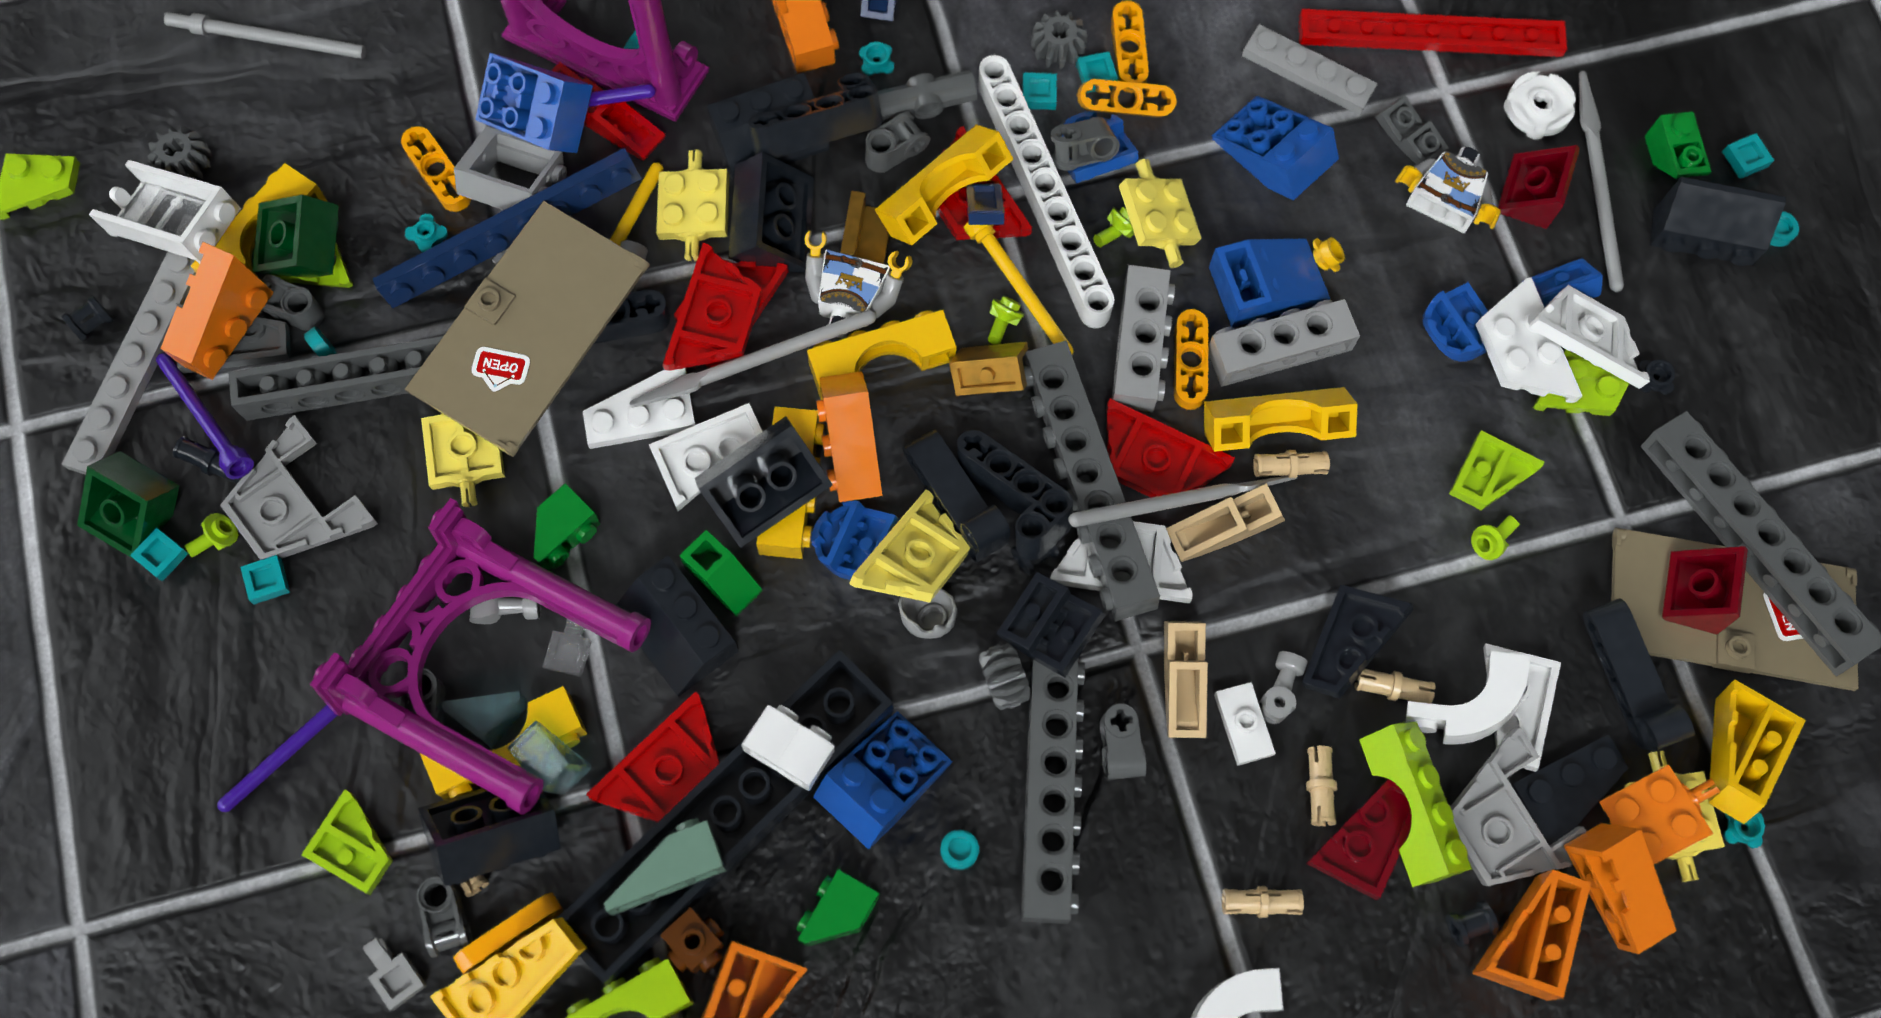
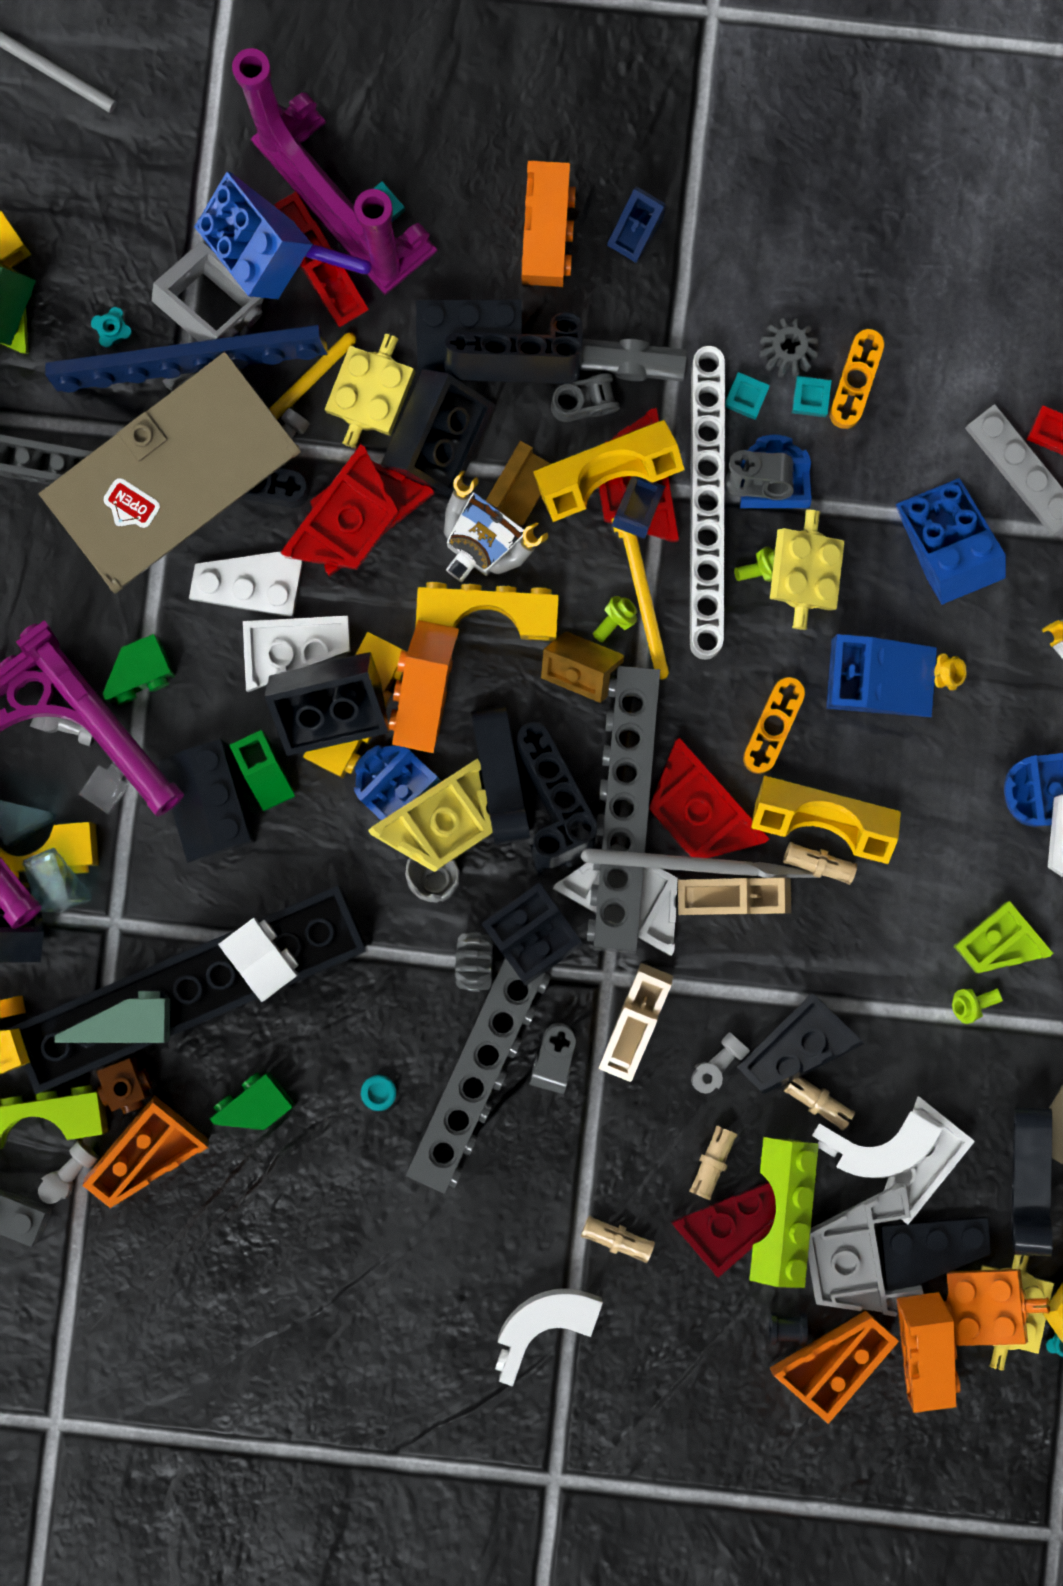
camera: 25 degrees right, 15 degrees up
(422, 163) = (127, 240): light orange beam -> none
(458, 457) = (66, 569): light yellow plate -> none
(662, 765) = (153, 924): red wing -> none
(693, 381) = (302, 576): light grey piece -> none
(873, 51) = (599, 291): teal plate -> none
(881, 779) = (336, 1007): blue slope -> none
(1150, 109) = (854, 437): light orange beam -> none
(1150, 287) = (754, 638): light grey brick -> none
(1236, 365) = (920, 756): light grey brick -> none
(1244, 723) = (671, 1081): white plate -> none

